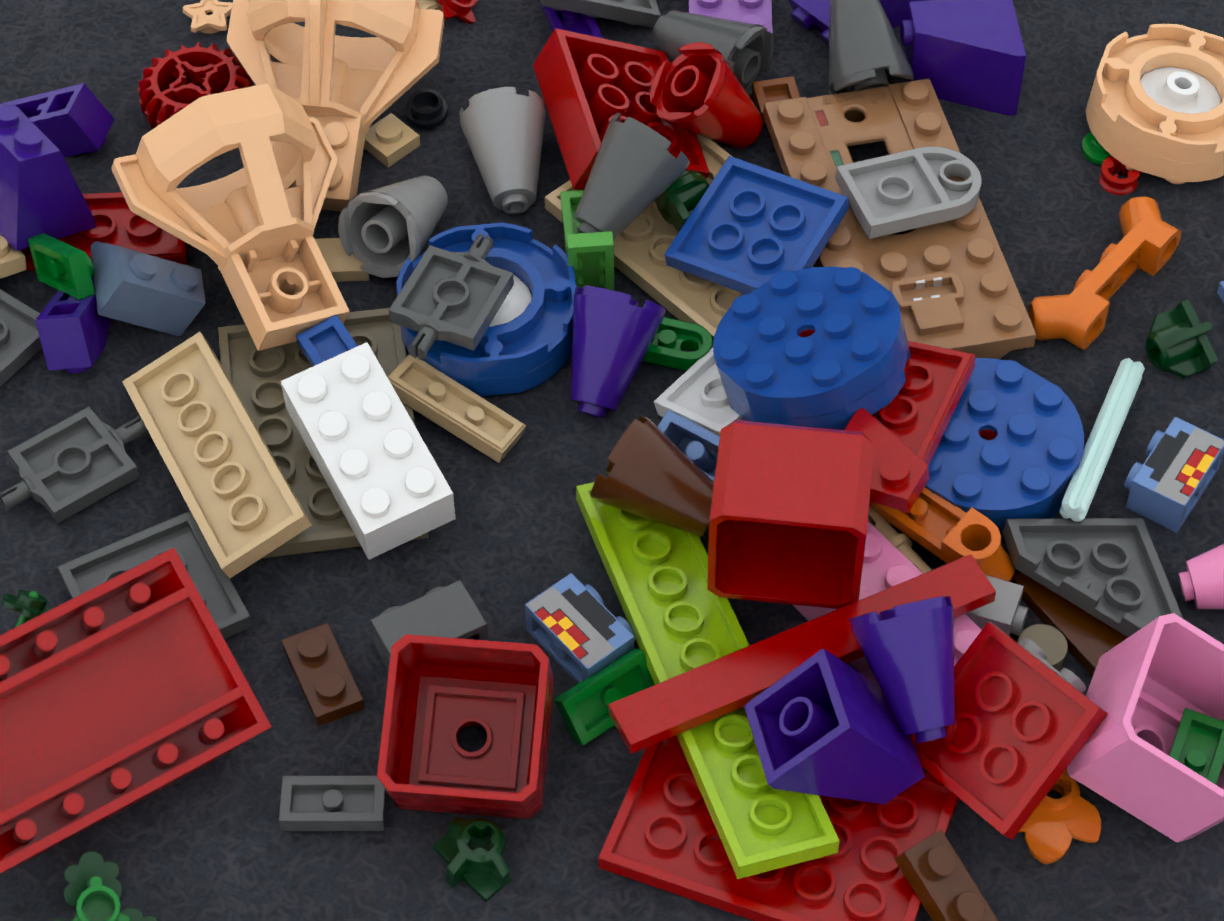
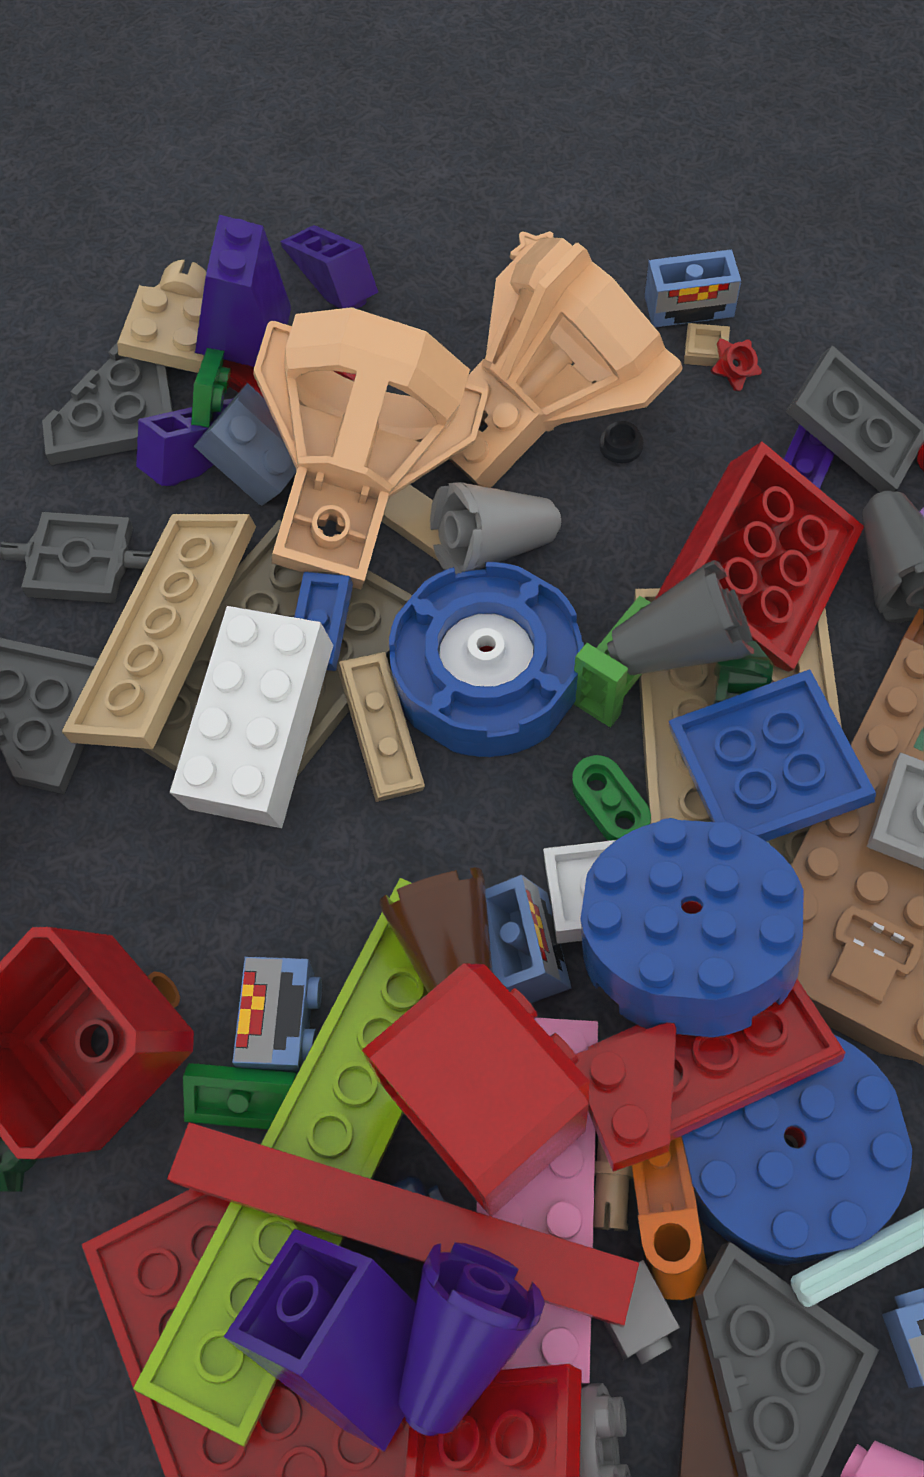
camera: 45 degrees right, 10 degrees up
(185, 77) = (453, 305): red gear -> none
(322, 674) = (69, 879): reddish brown plate -> none
(391, 140) = (569, 450): tan plate -> none
(439, 613) = (160, 916): dark grey brick -> none
(451, 297) = (442, 630): dark grey plate -> none
(506, 144) = (643, 521): light grey cone -> none
(608, 346) = (543, 769): dark purple cone -> none
(705, 97) = (845, 597): red cone -> none
(1050, 641) = (653, 1395): dark tan tile -> none

